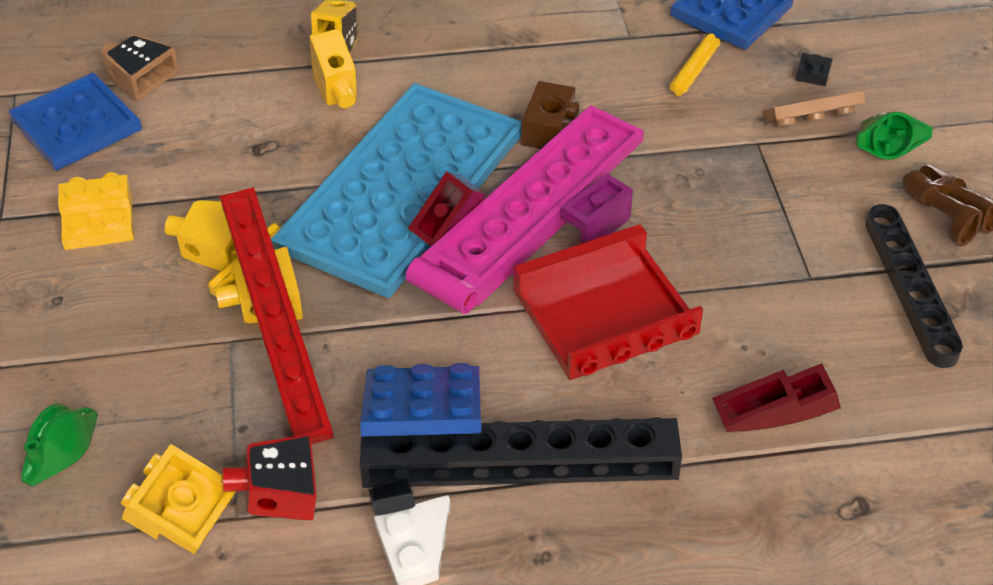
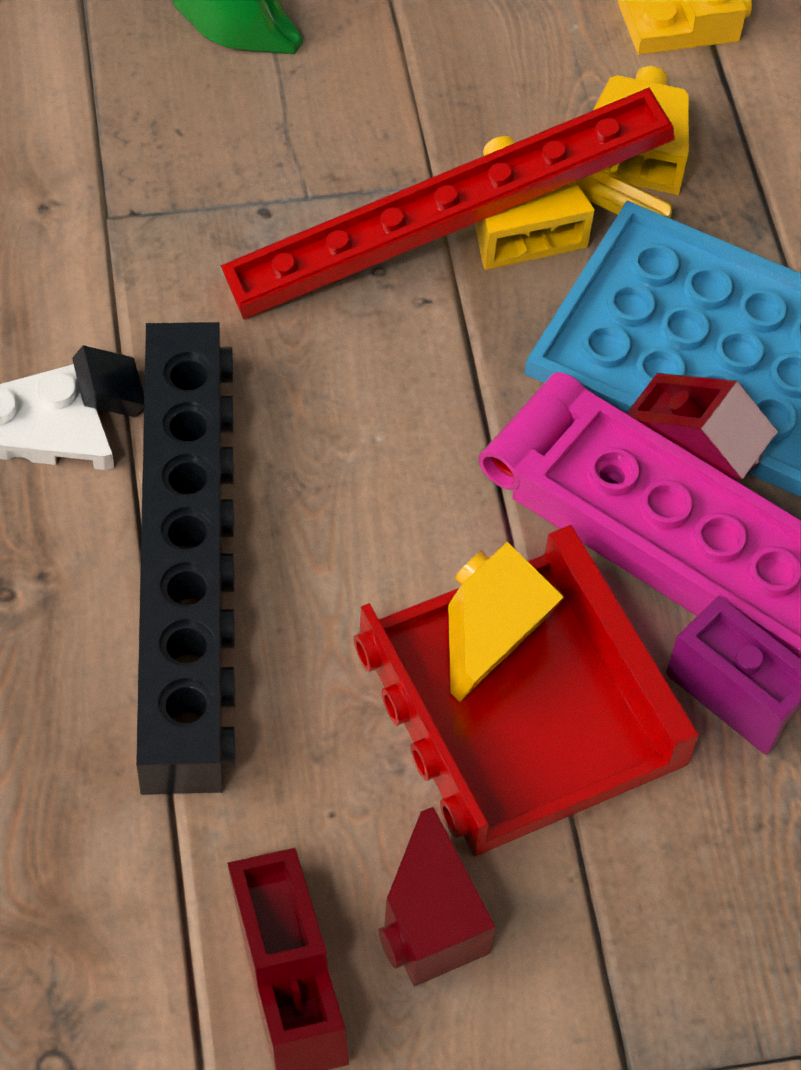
camera: 85 degrees right, 10 degrees up
(176, 499) = (117, 137): yellow plate -> none
(276, 478) = (145, 240): torso -> none
(421, 400) = (277, 405): blue plate -> none
(573, 304) = (493, 613): none -> yellow slope
(737, 339) = (434, 908): none -> dark red slope

